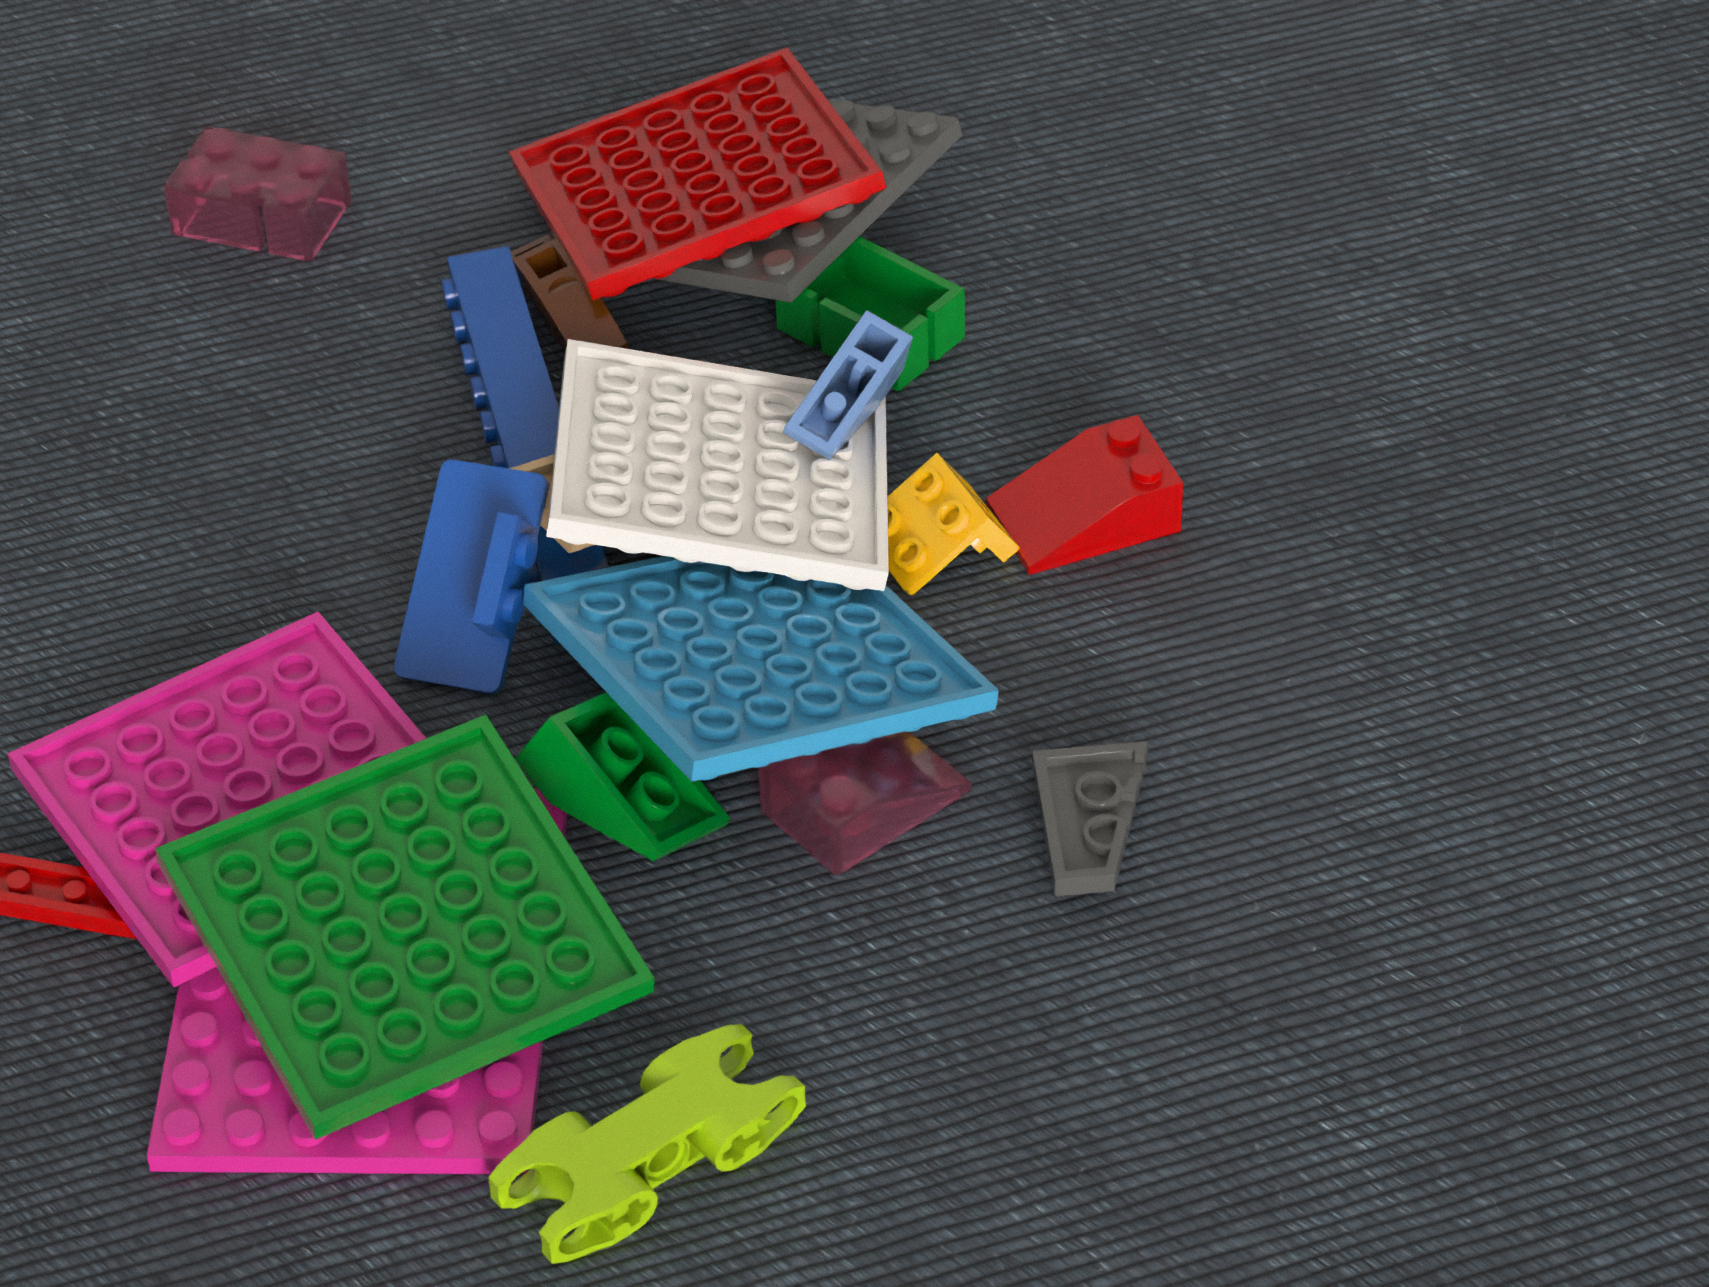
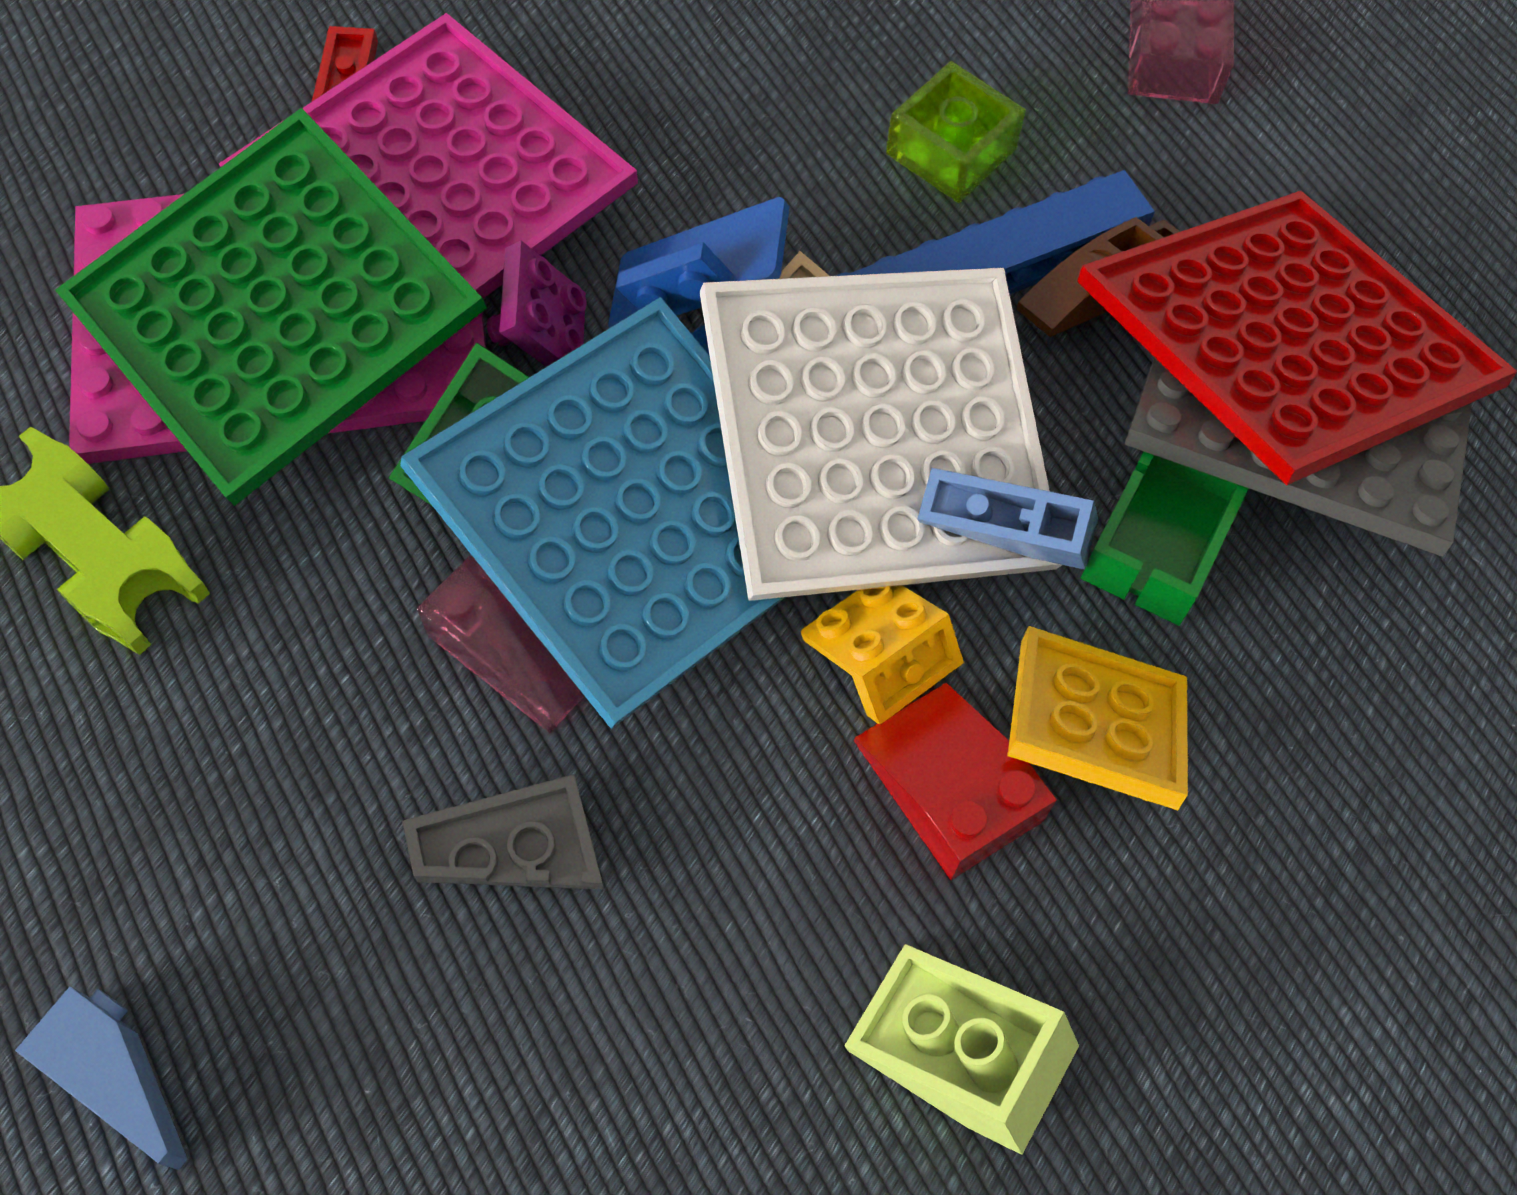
camera: 75 degrees right, 20 degrees up
(342, 374) = (954, 131): none -> clear neon green brick
(449, 704) = (538, 307): none -> magenta plate
(1058, 381) = (1101, 718): none -> yellow plate
(1274, 1114) = (106, 1069): none -> medium blue slope
(1340, 525) = (966, 1045): none -> yellowish green slope

